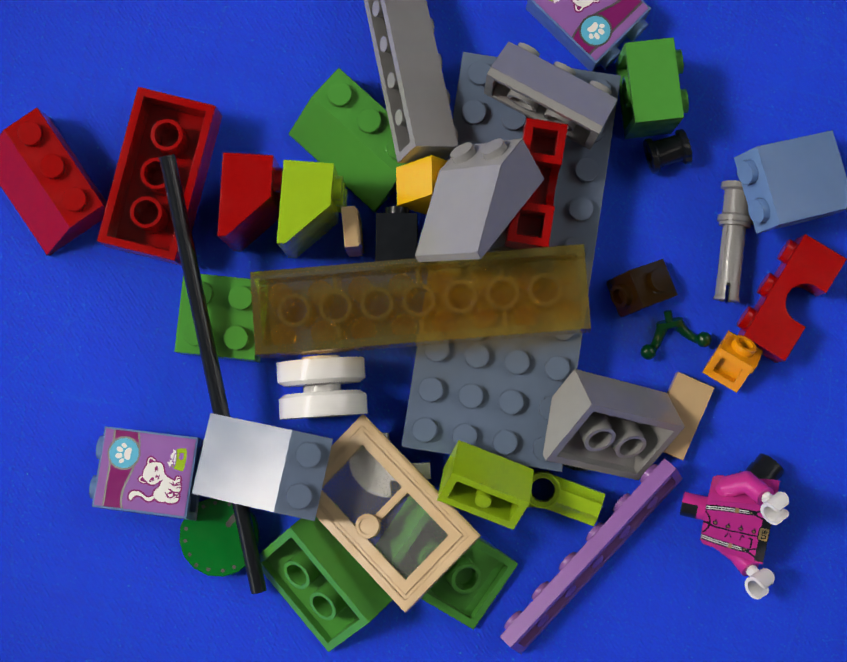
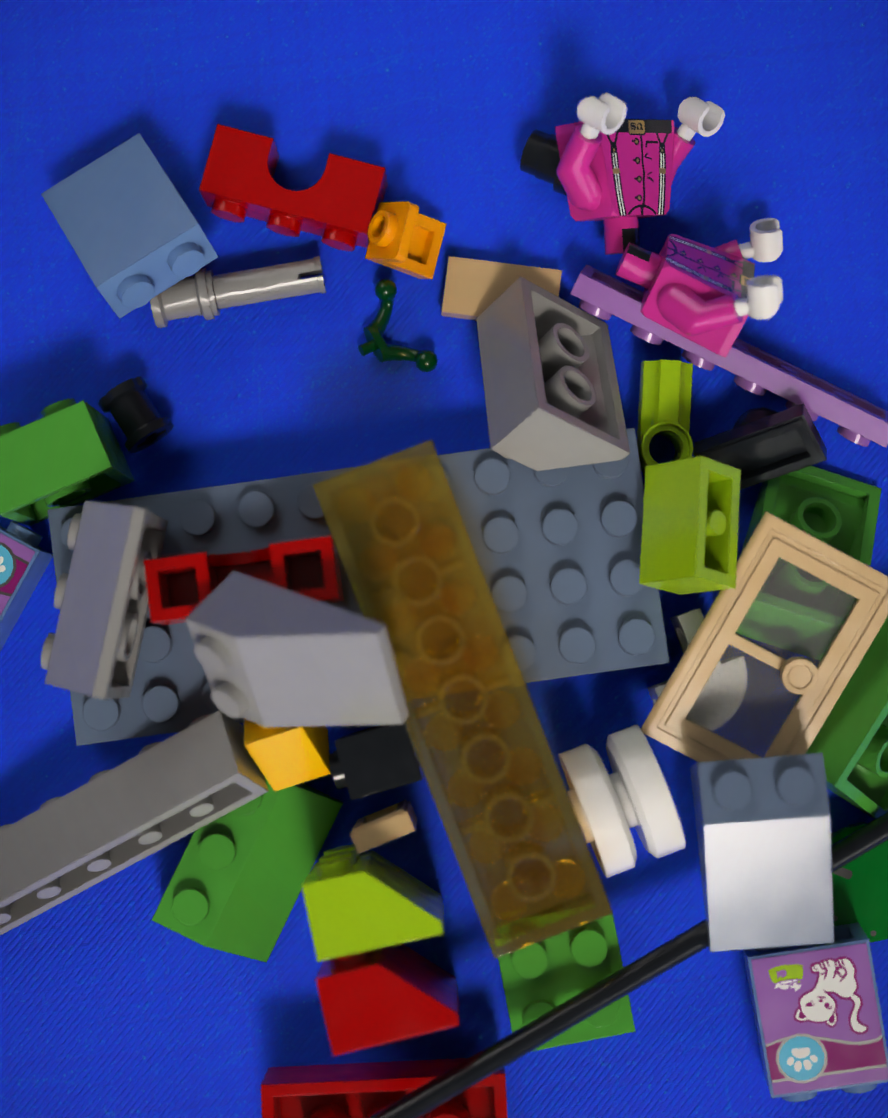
camera: 110 degrees left, 0 degrees up
(524, 555) = (766, 444): none -> black tile
(641, 288) = (340, 395): dark brown bracket -> none
(641, 548) = (707, 289): none -> dark pink torso

